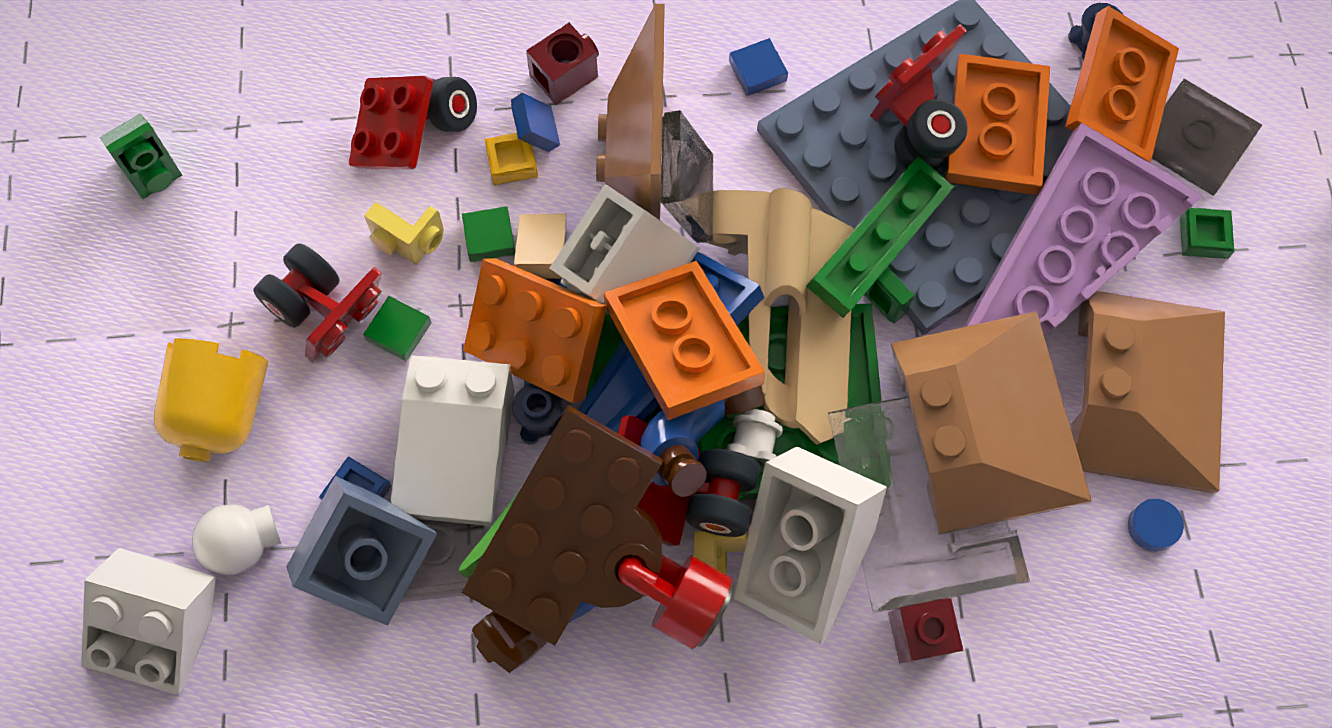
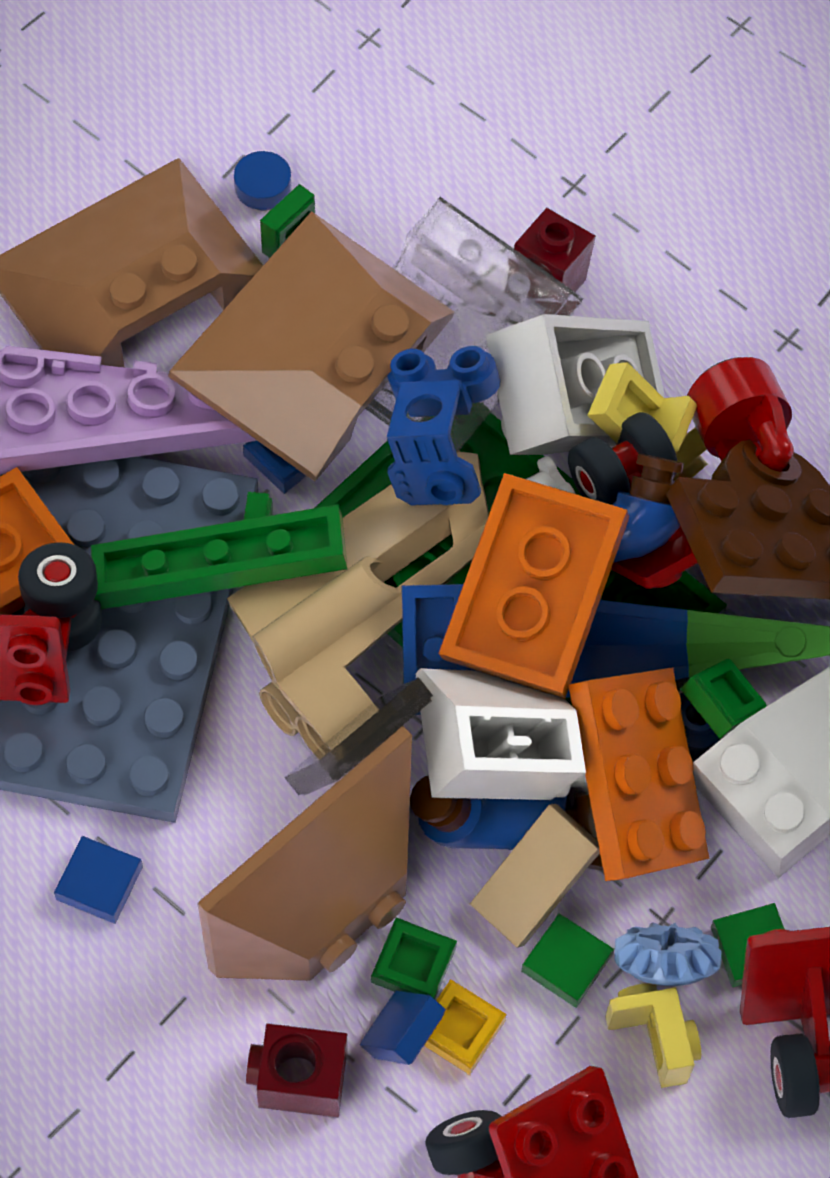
camera: 135 degrees left, 5 degrees down
(415, 262) = (667, 954): none -> light blue gear
(528, 420) = (723, 697): none -> green tile
(566, 166) = (413, 959): none -> green tile
(765, 534) = (627, 393): none -> light yellow bracket
(873, 417) = (424, 454): none -> blue piece
(1105, 505) = (285, 218): none -> green tile

